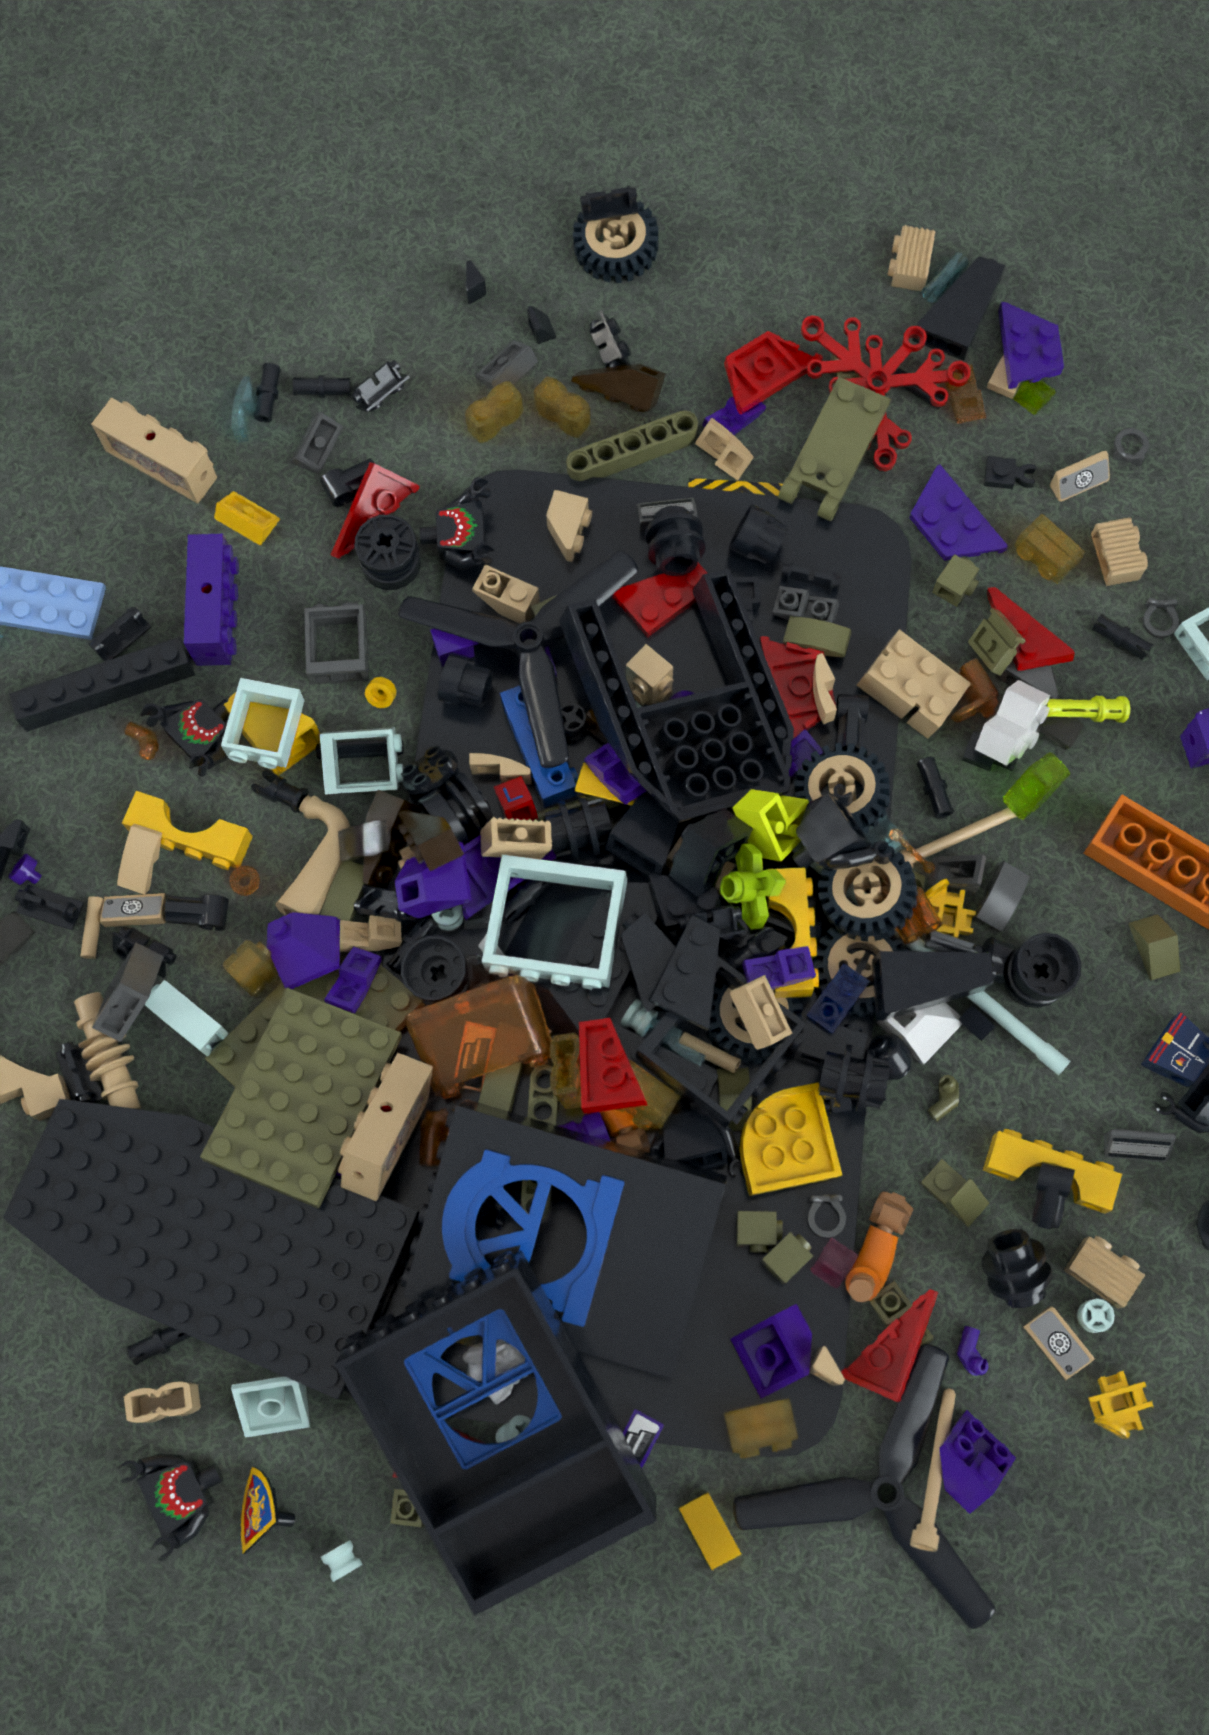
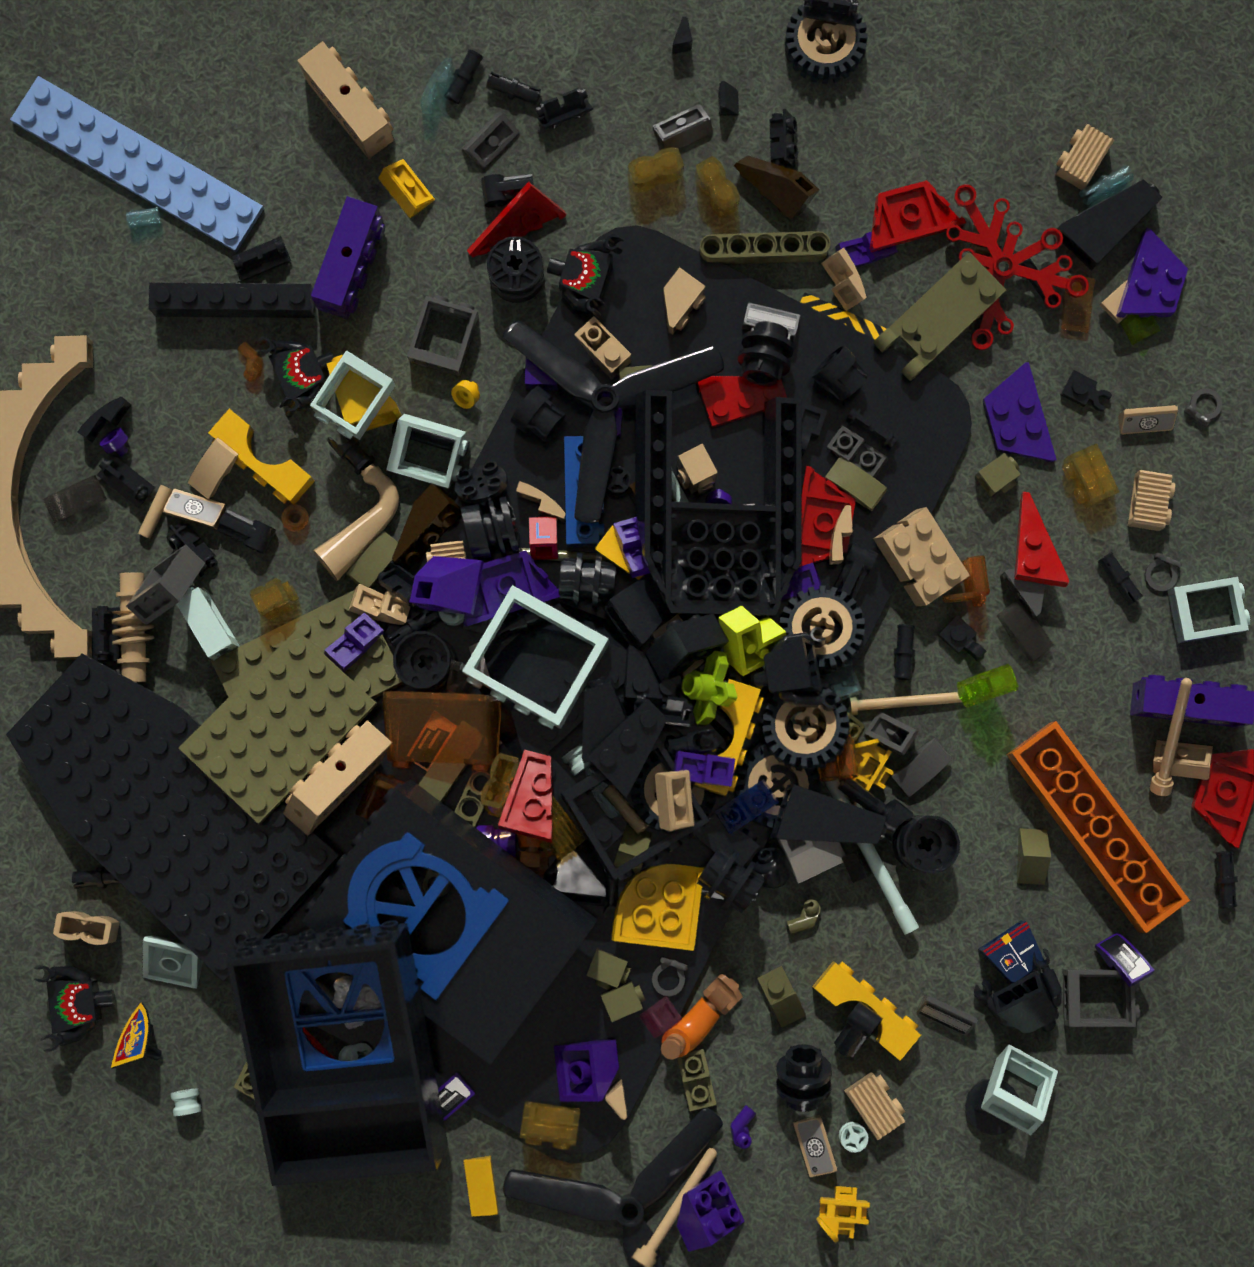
camera: 15 degrees right, 10 degrees up
(304, 947) = (323, 598): dark purple slope -> none
(364, 840) = (404, 525): clear smoke slope -> none
(429, 839) = (455, 550): dark brown slope -> none
(516, 838) = (529, 574): tan brick -> none
(889, 1360) = (673, 1110): red wing -> none
(897, 835) = (852, 685): clear orange hinge -> none
(996, 642) = (1007, 546): olive plate -> none
(1015, 725) = (991, 626): white brick -> none
(1096, 709) = (1069, 635): neon yellow pin -> none

